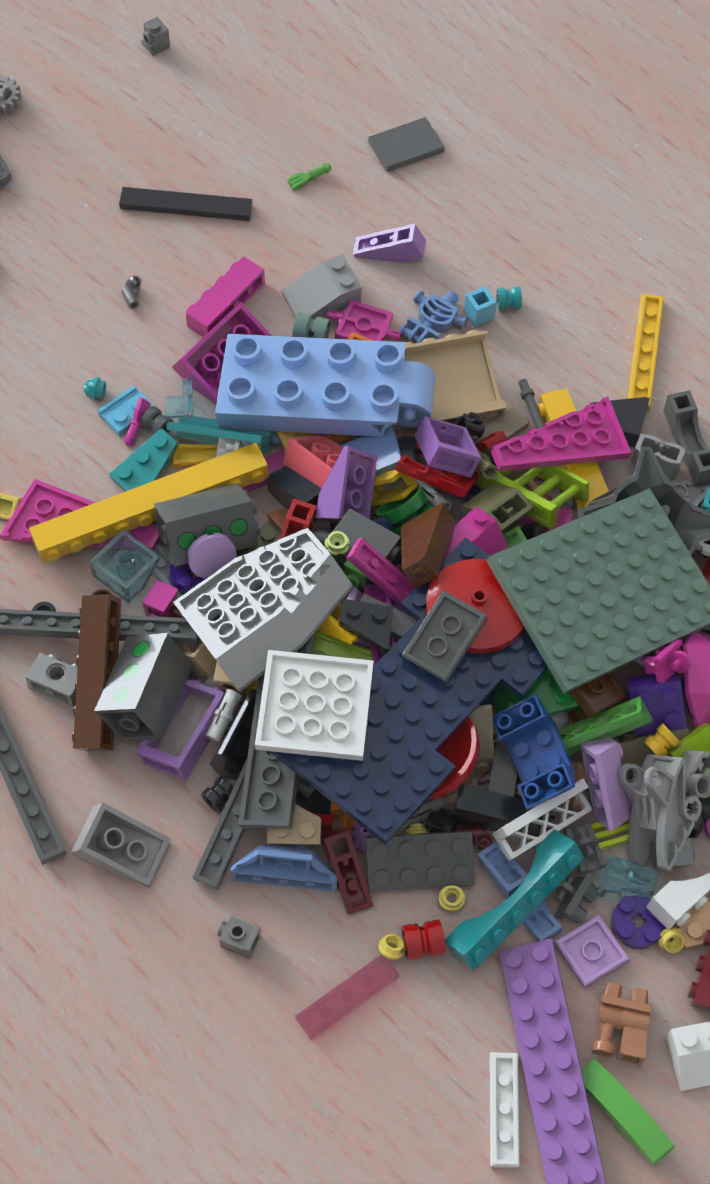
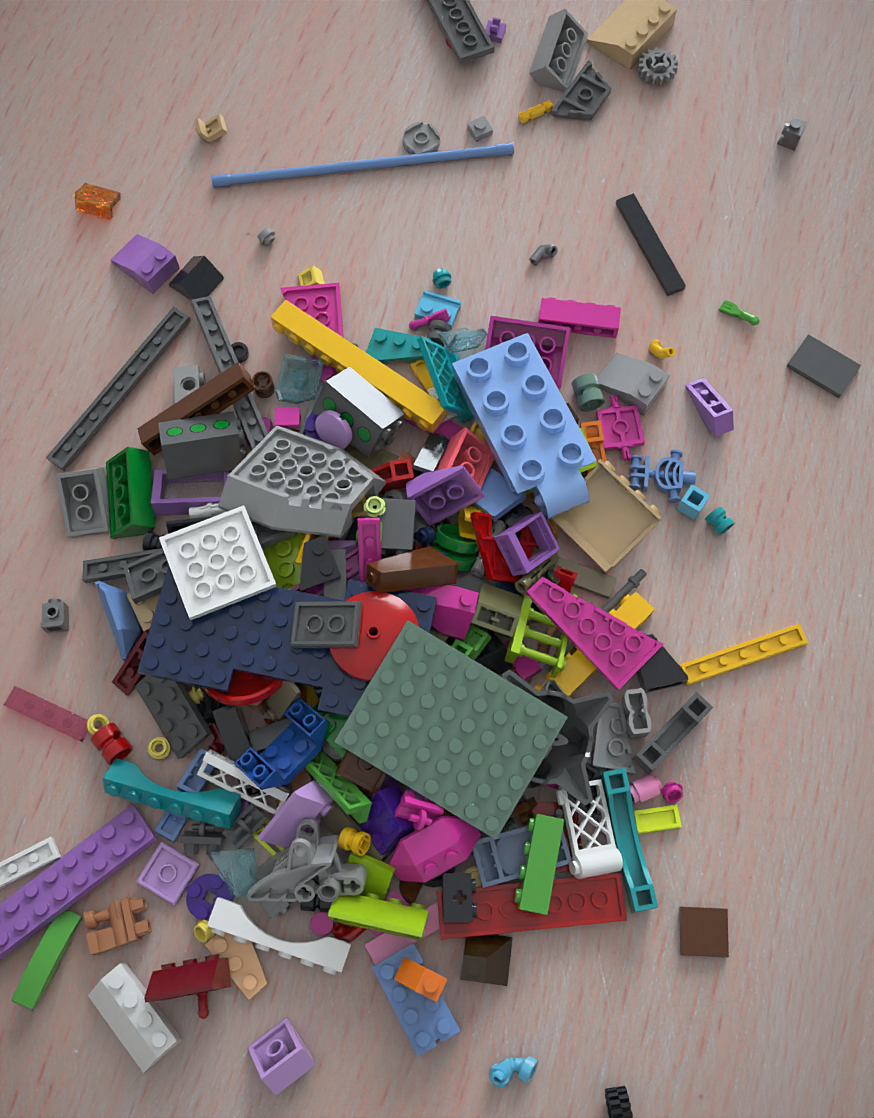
camera: 65 degrees right, 10 degrees up
(144, 793) = (130, 493): none -> green slope
(307, 255) = (661, 353): none -> yellow arm
(473, 424) = (569, 553): black gear -> none

